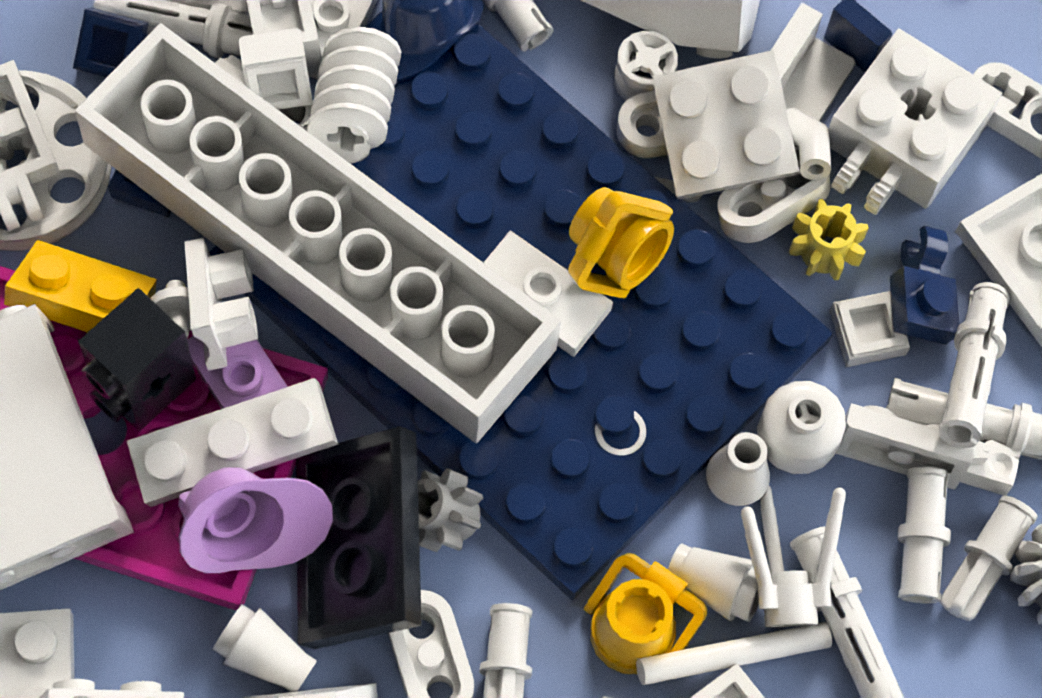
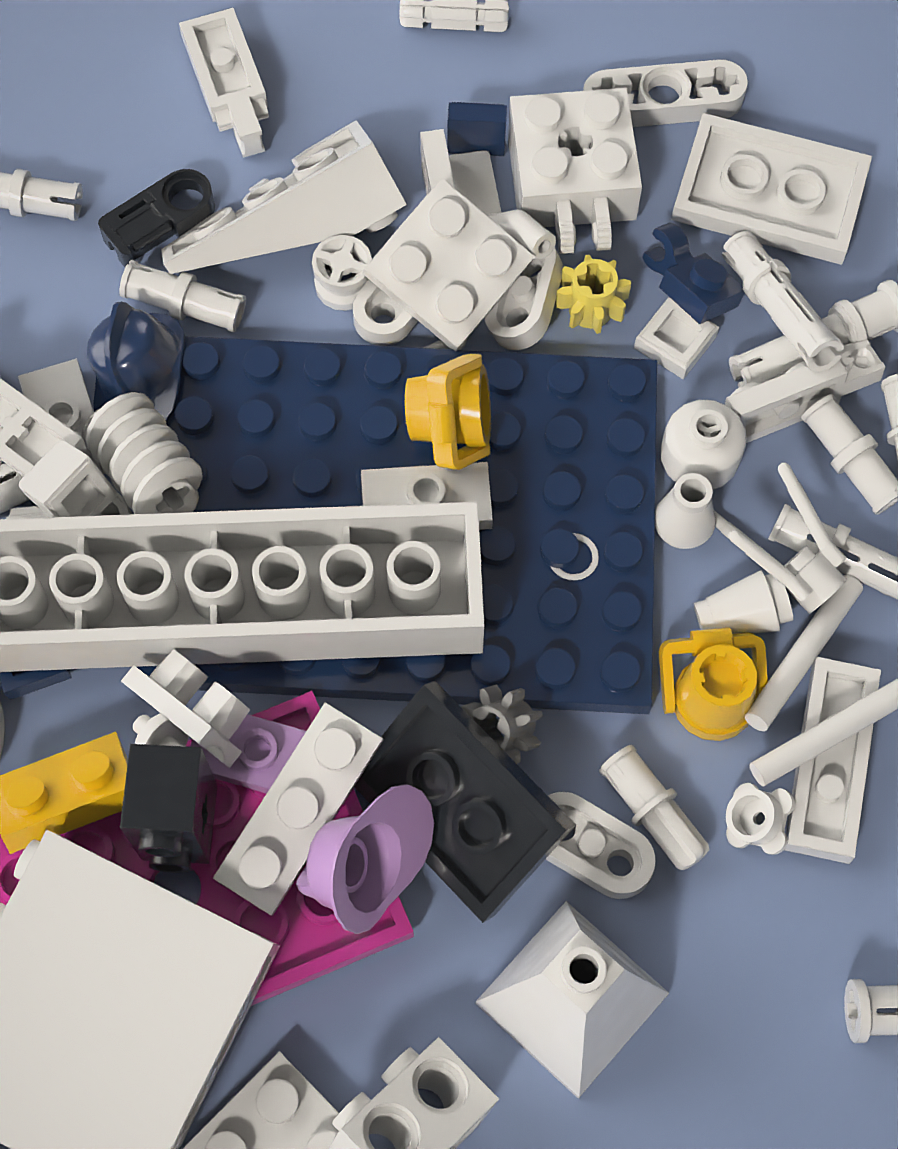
camera: 35 degrees left, 0 degrees up
(263, 650) = (460, 950): white cone -> none

